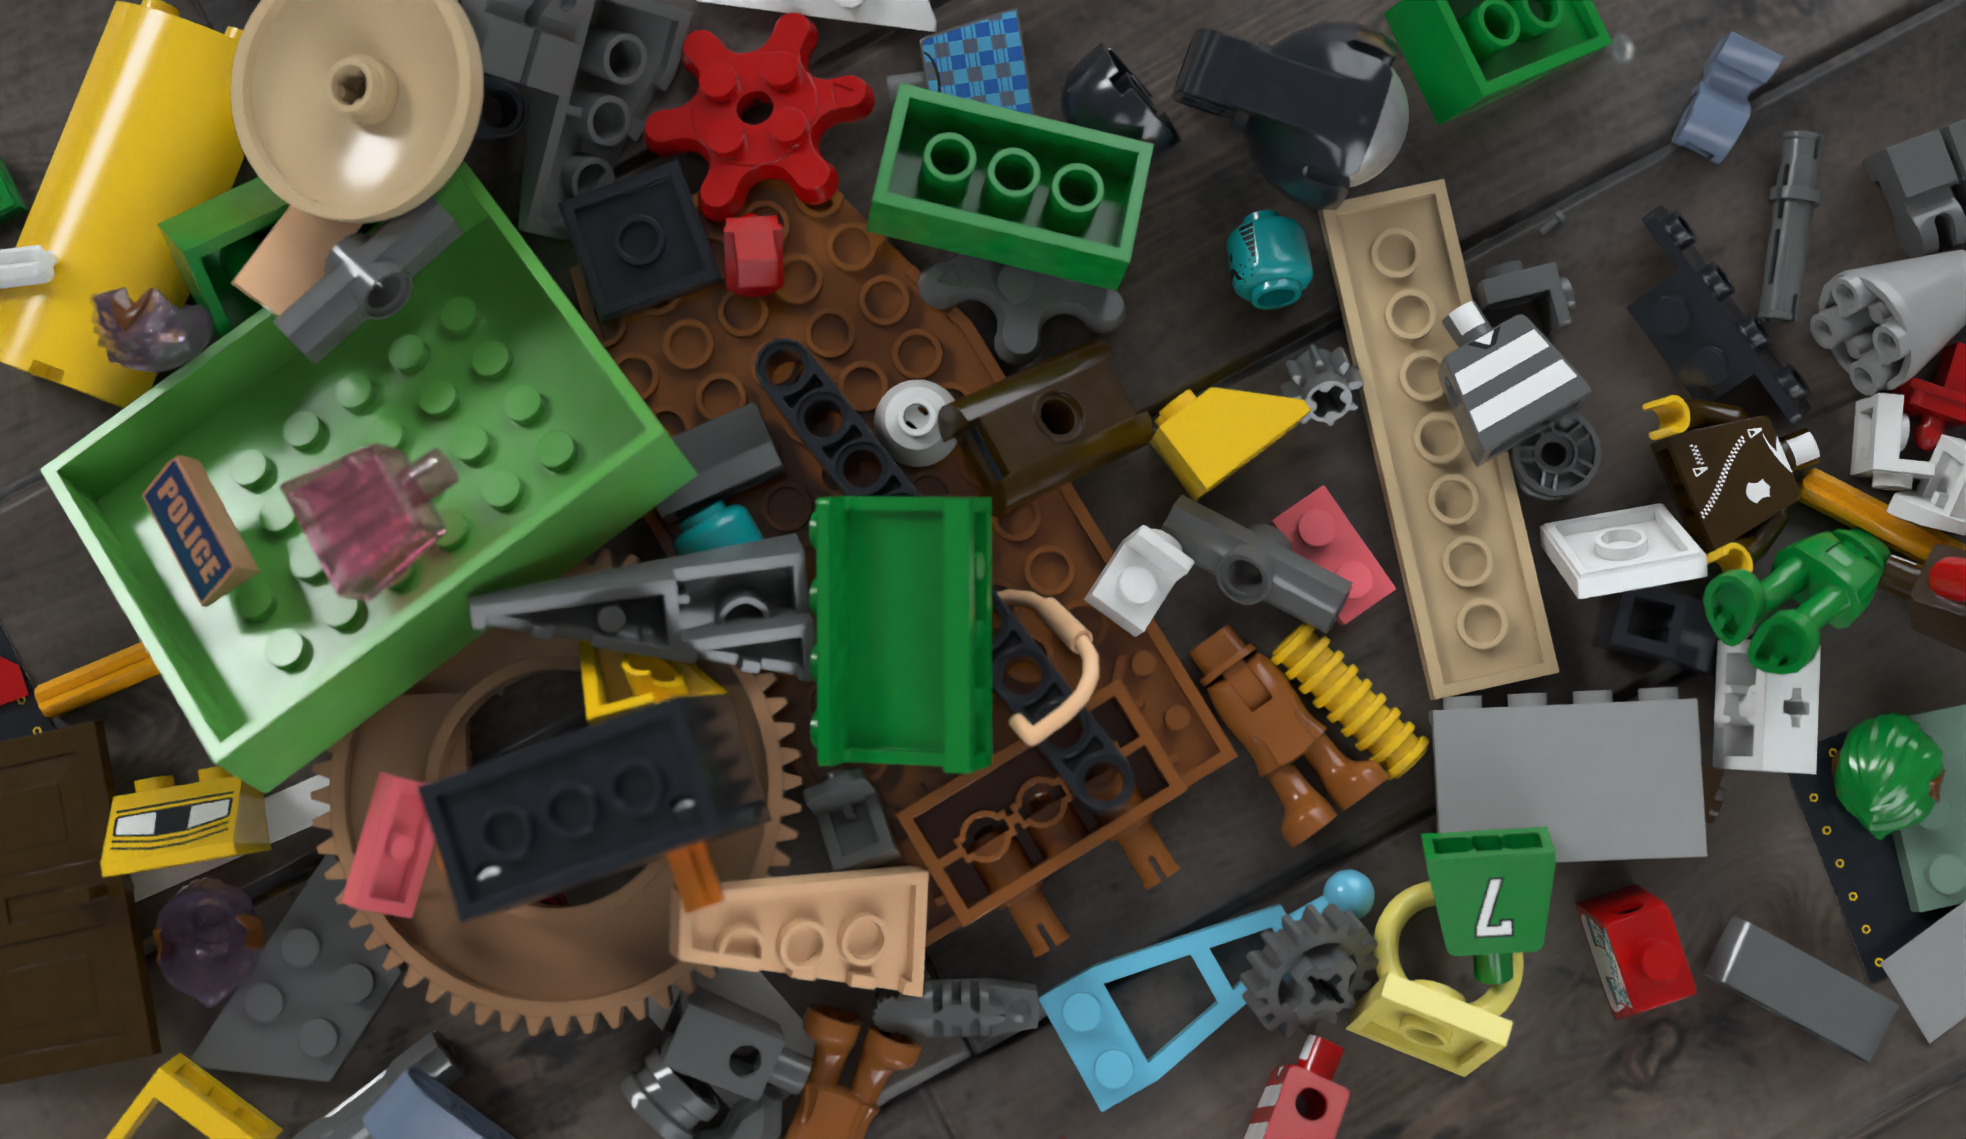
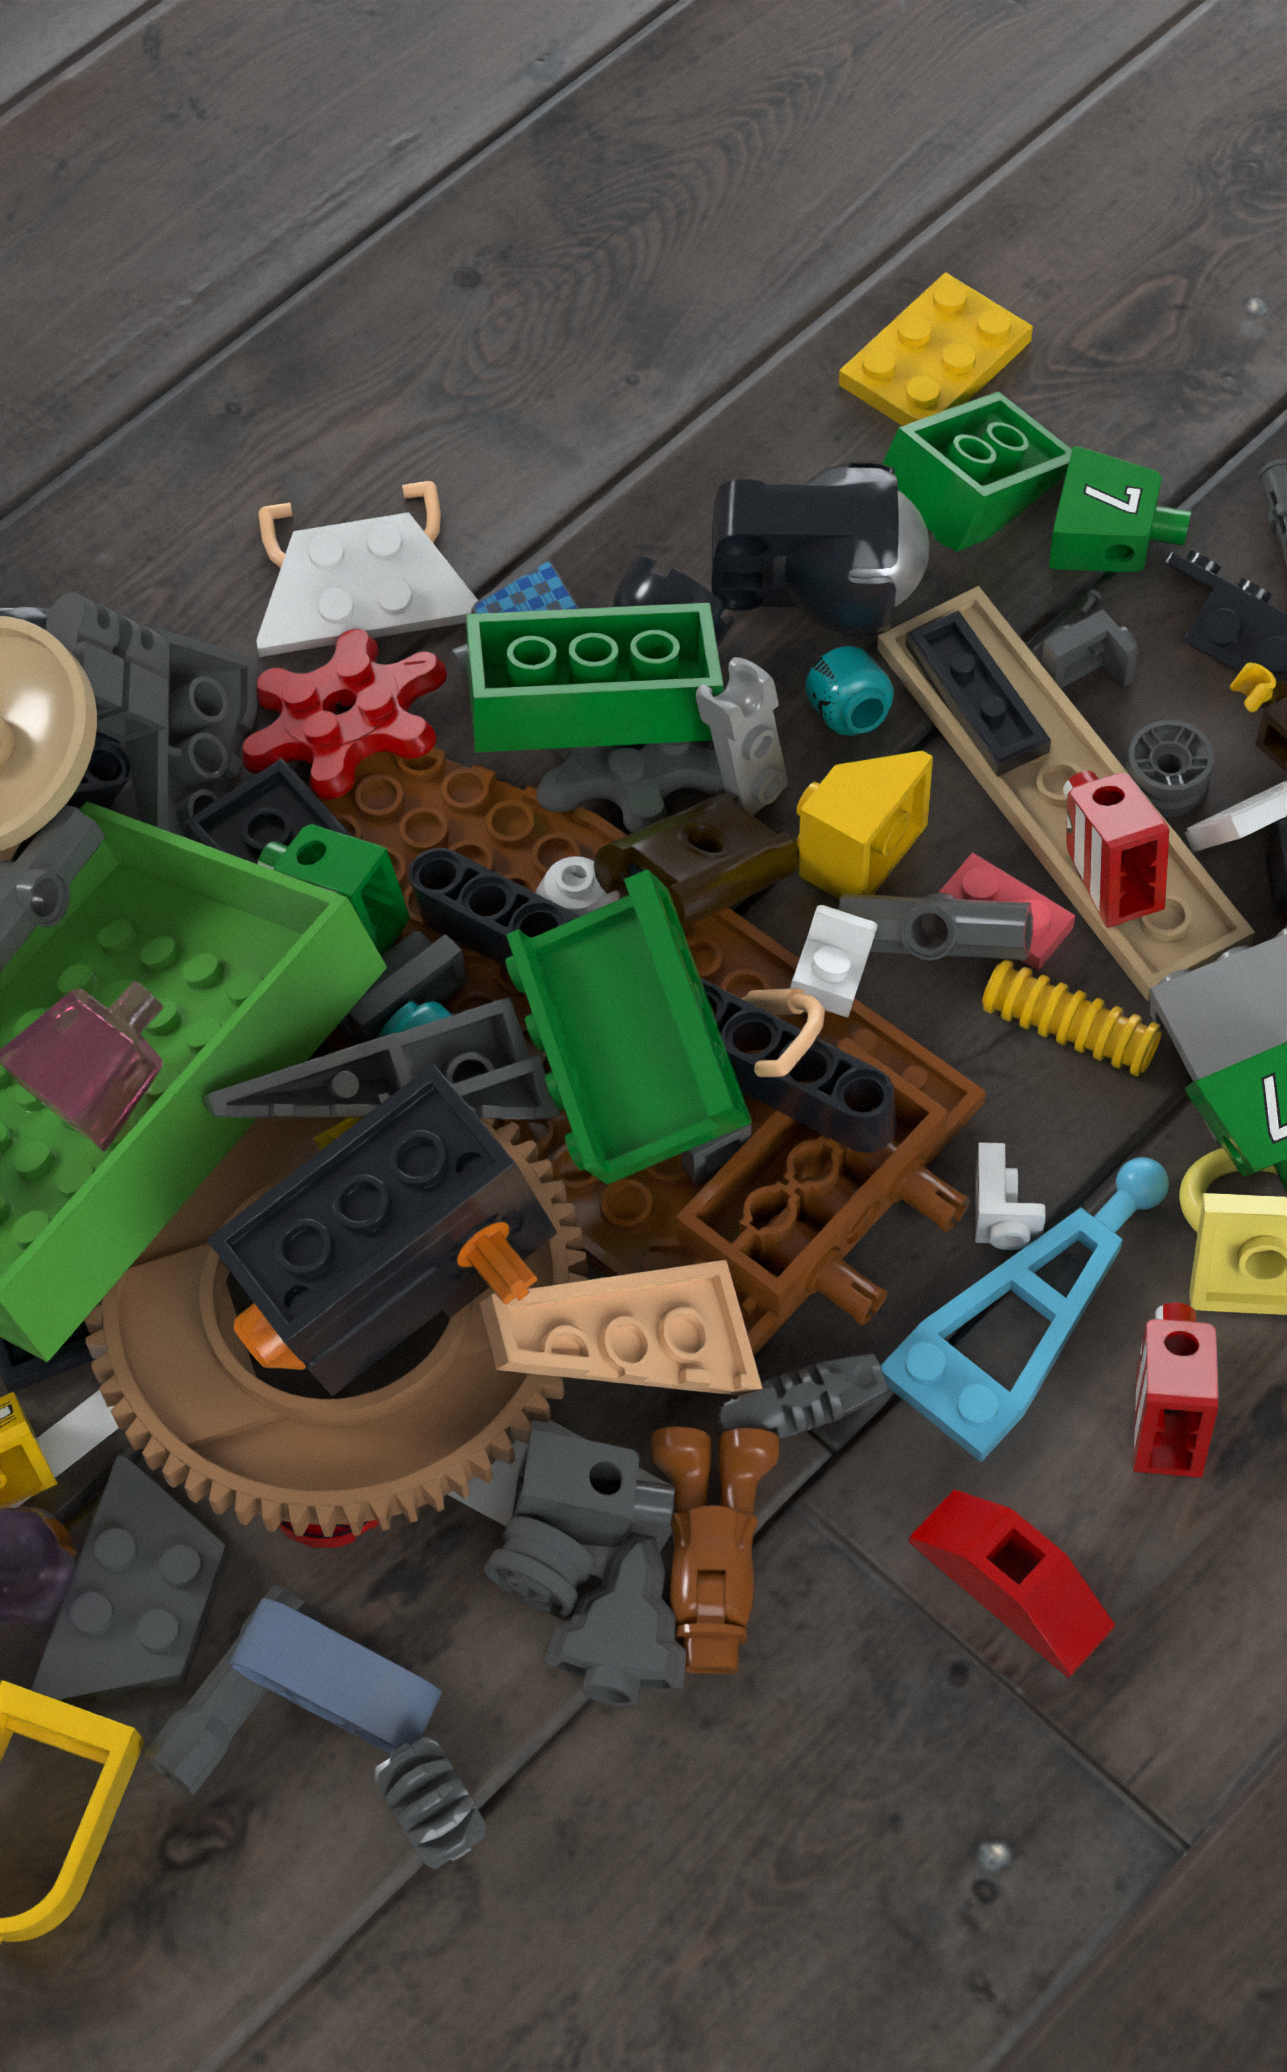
camera: 10 degrees left, 25 degrees down
(391, 849) = (191, 1368): coral plate -> none
(681, 344) = (350, 869): none -> green torso
(753, 255) = (379, 807): red piece -> none
(852, 820) = (630, 1236): dark grey bracket -> none
(1139, 305) = (746, 734): none -> light grey plate
(1209, 859) = (997, 1213): none -> white bracket
(1278, 730) = (1019, 1065): dark orange piece -> none
(1309, 969) = (1130, 1240): dark grey gear -> none
(1323, 383) = (954, 766): dark grey gear -> none
(1394, 312) = (978, 693): none -> black tile
(1458, 548) = (1113, 823): none -> red torso
(1505, 382) = (1101, 705): dark grey torso -> none
(1613, 135) = (1111, 515): none -> green torso
(1720, 99) = (1194, 455): sand blue leg -> none

